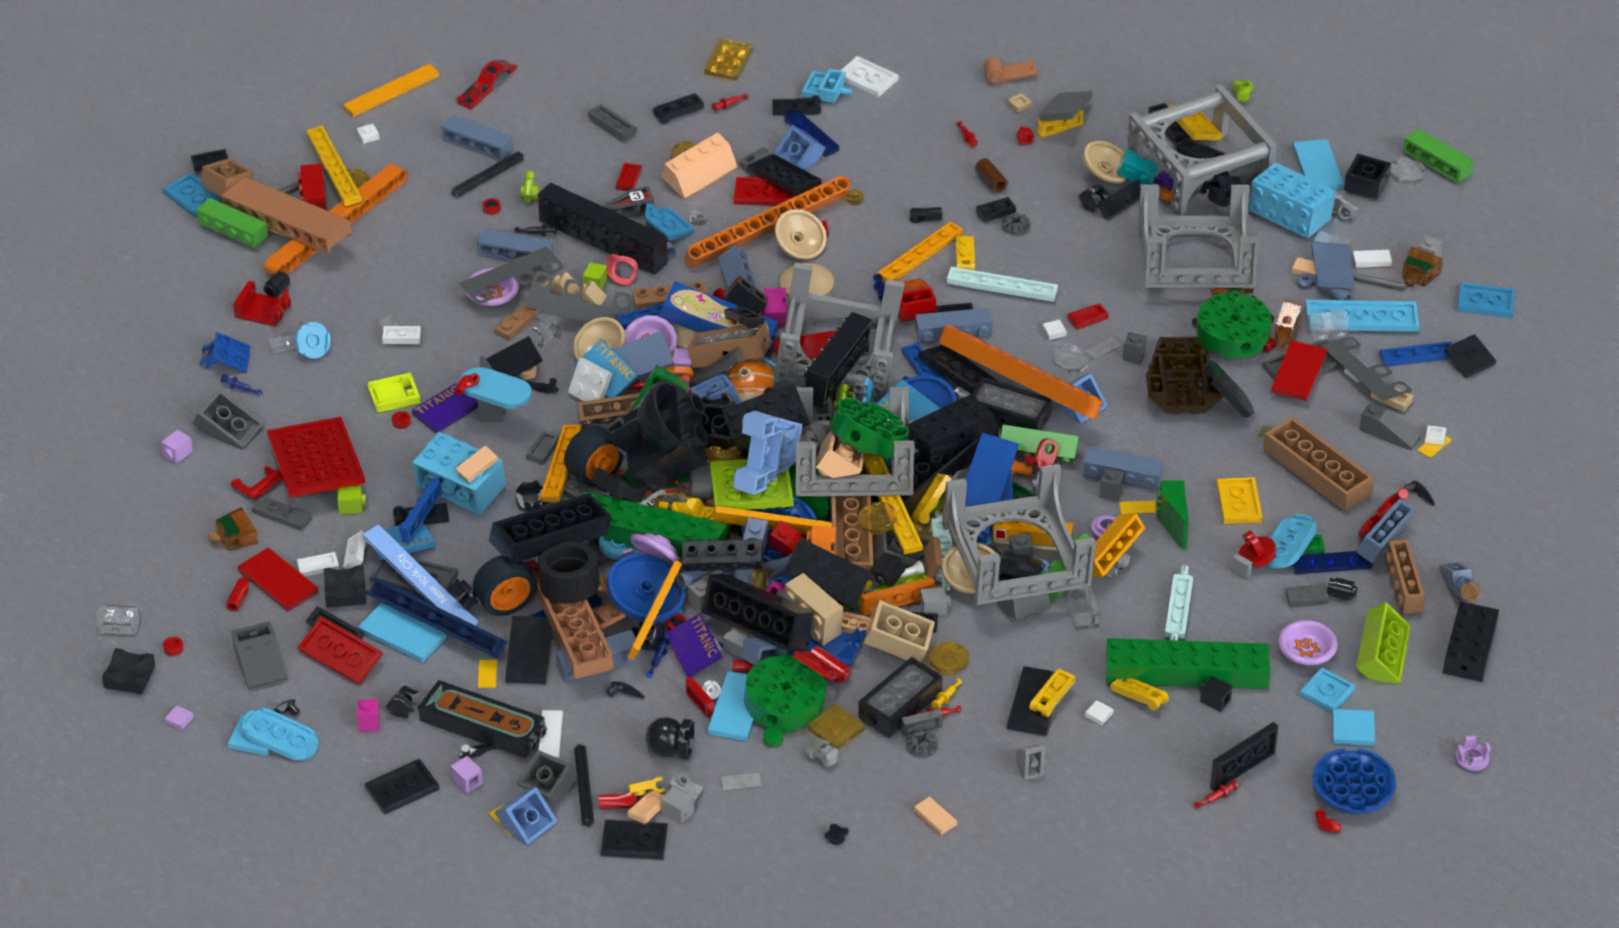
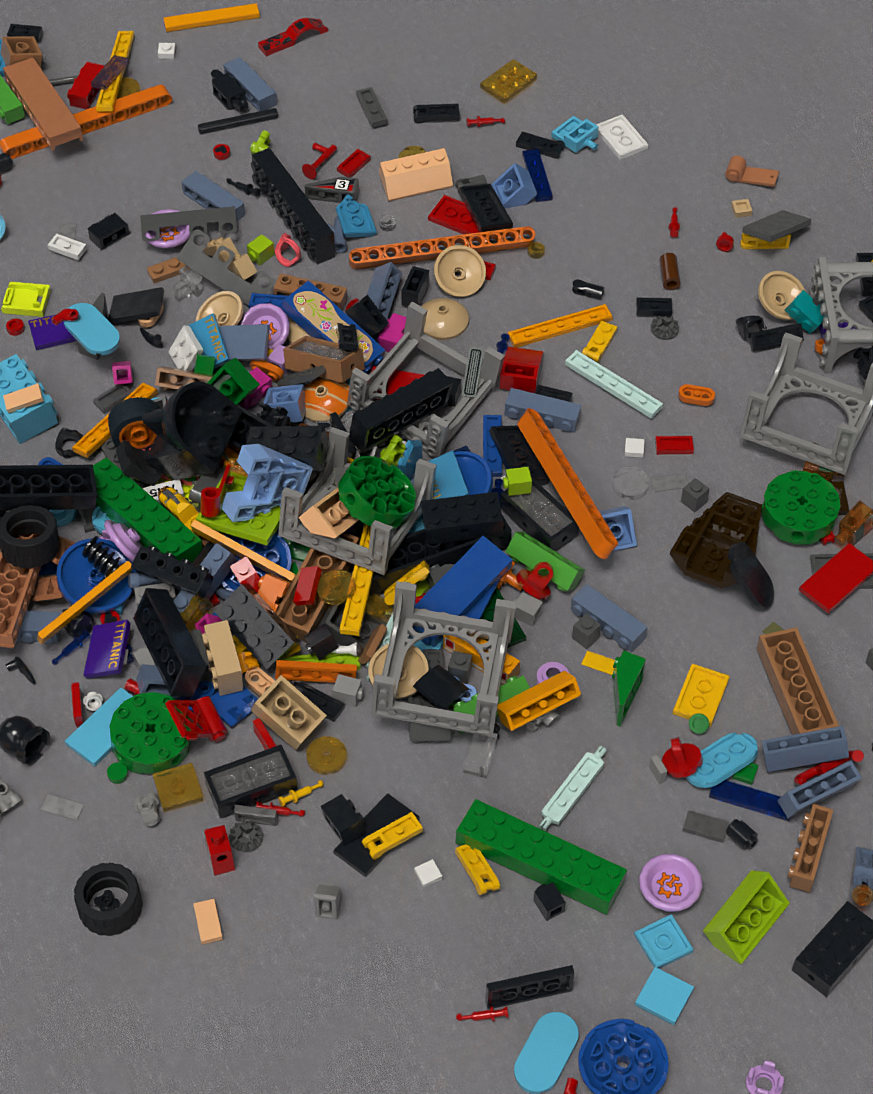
camera: 25 degrees right, 10 degrees up
(334, 167) = (109, 72): none -> tile
(432, 308) = (108, 230): none -> black brick
(460, 150) = (228, 91): none -> black hinge
(541, 421) = (122, 372): none -> dark pink brick
(593, 193) = (310, 170): none -> red piece
(618, 386) = (204, 364): none -> green tile
(648, 567) = (100, 557): none -> black piece
(723, 478) = (213, 498): none -> red door
(767, 261) = (415, 286): none -> black brick
(840, 845) = (101, 877): none -> black tyre
(851, 526) = (307, 586): none -> red tile
(872, 311) = (472, 372): none -> sticker
(884, 661) = (262, 734): none -> red tile
(909, 756) = (217, 845): none -> red torso
(980, 382) = (517, 481): none -> lime brick
(1001, 696) = (343, 819): none -> black brick
(1082, 269) = (696, 395): none -> orange plate
(1252, 521) = (699, 723): none -> green tile
(1285, 802) = (546, 1052): none -> medium azure tile
(1355, 505) = (805, 748): none -> sand blue brick

